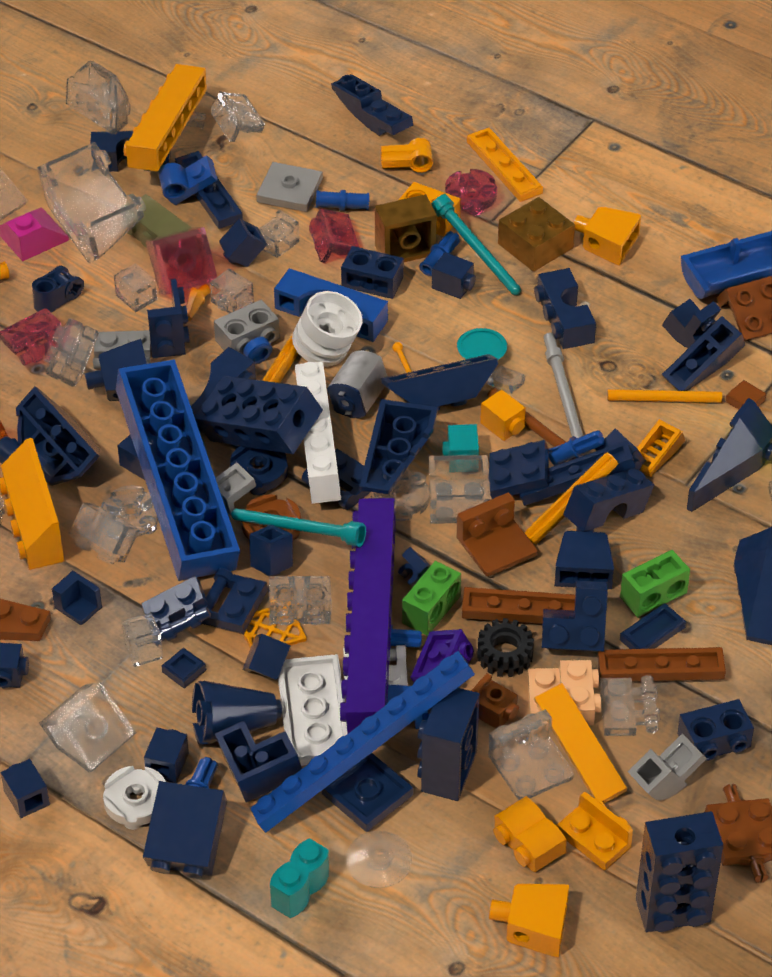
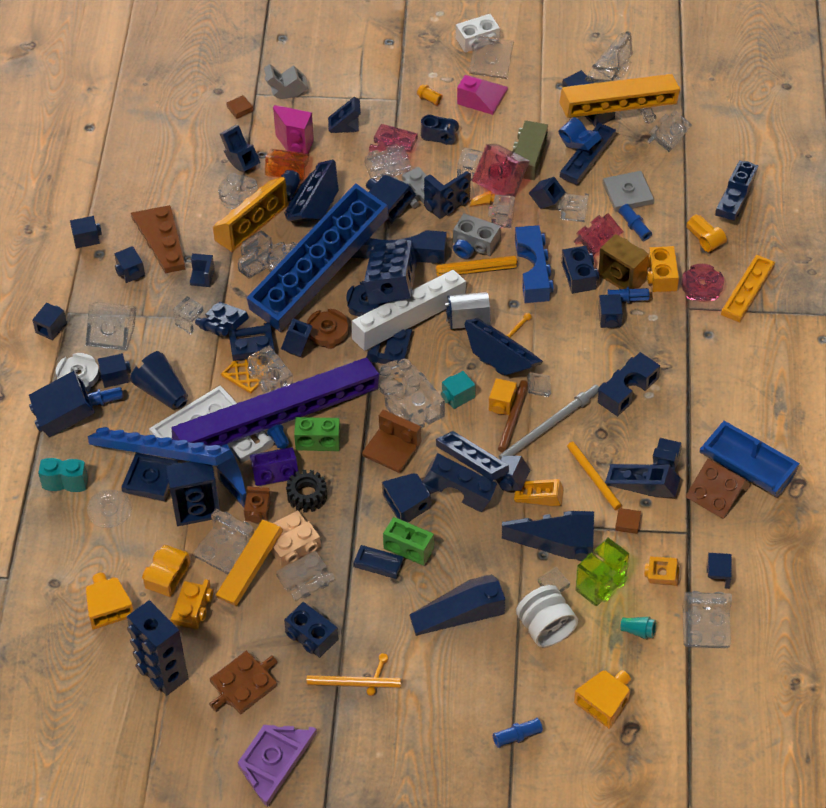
camera: 60 degrees right, 5 degrees up
(89, 200) = (516, 102): clear windscreen -> none
(183, 668) = (187, 346): dark blue tile -> none
(234, 484) = (334, 293): light grey bracket -> none
(257, 766) = (129, 409): dark blue brick -> none
(266, 656) = (216, 377): dark blue panel -> none
(327, 328) = (502, 260): white wheel -> none
(352, 532) = (324, 364): teal piece -> none
(395, 442) = (429, 349): dark blue wedge -> none
(415, 564) = (343, 412): dark blue tile -> none
(444, 208) = (656, 271): teal piece -> none
(481, 342) = (558, 357): teal piece -> none
(512, 604) = (347, 485): dark orange plate -> none
(519, 469) = (458, 426): dark blue plate -> none
(536, 234) = (685, 334): pearl gold brick -> none
(555, 512) = (423, 462): light orange axle -> none
(575, 447) = (497, 446): blue axle -> none
(582, 627) = (344, 514): dark blue brick -> none
(609, 233) = (723, 374): light orange torso -> none
(663, 663) = (349, 578): dark orange plate -> none
(666, 774) = (254, 616): light grey brick -> none

